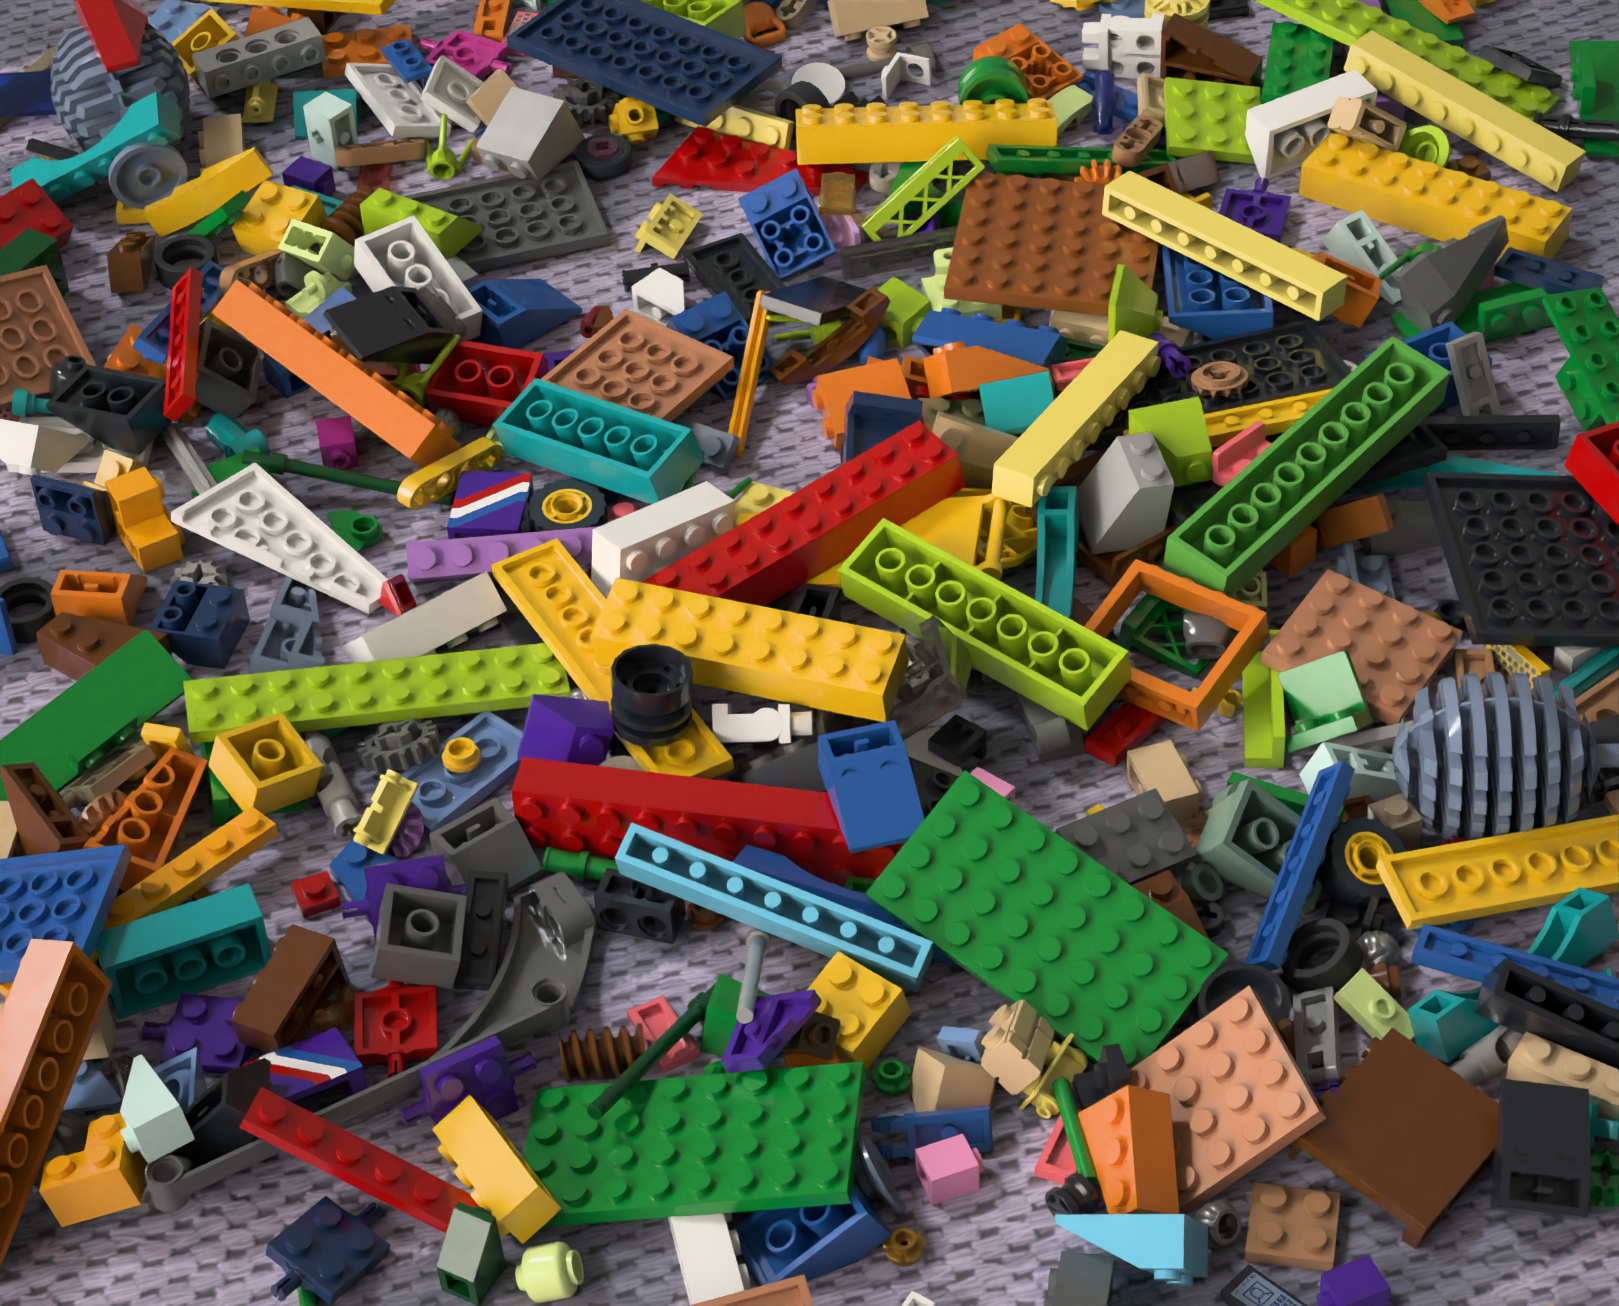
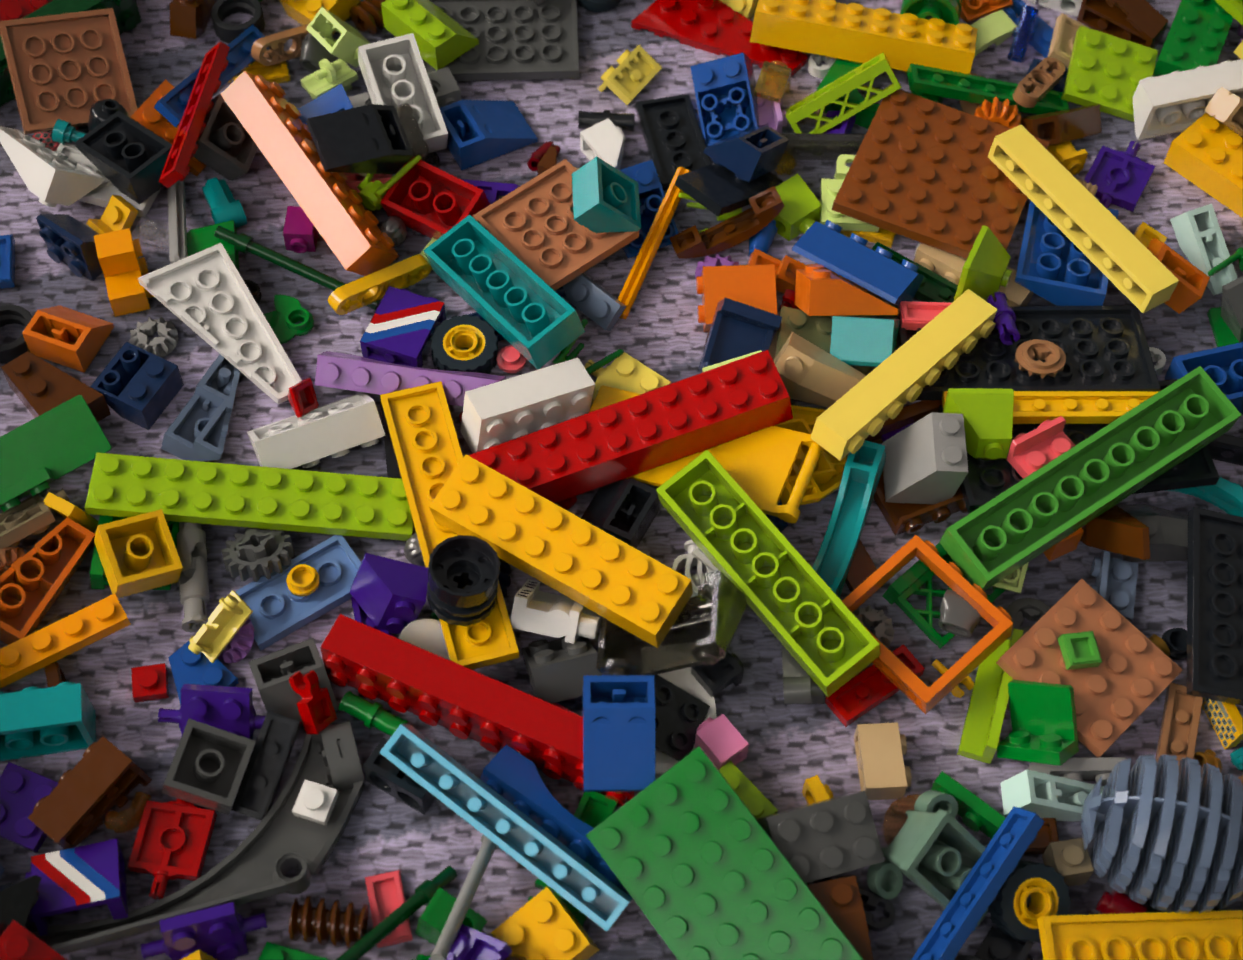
camera: 10 degrees right, 15 degrees up
(516, 857) = (316, 705): none -> red plate
(548, 951) = (315, 802): none -> white plate
(685, 331) = (605, 198): none -> teal slope
(833, 264) = (749, 152): none -> dark blue slope
(872, 274) = (786, 164): none -> clear yellow plate
(1345, 626) = (1079, 650): none -> bright green tile

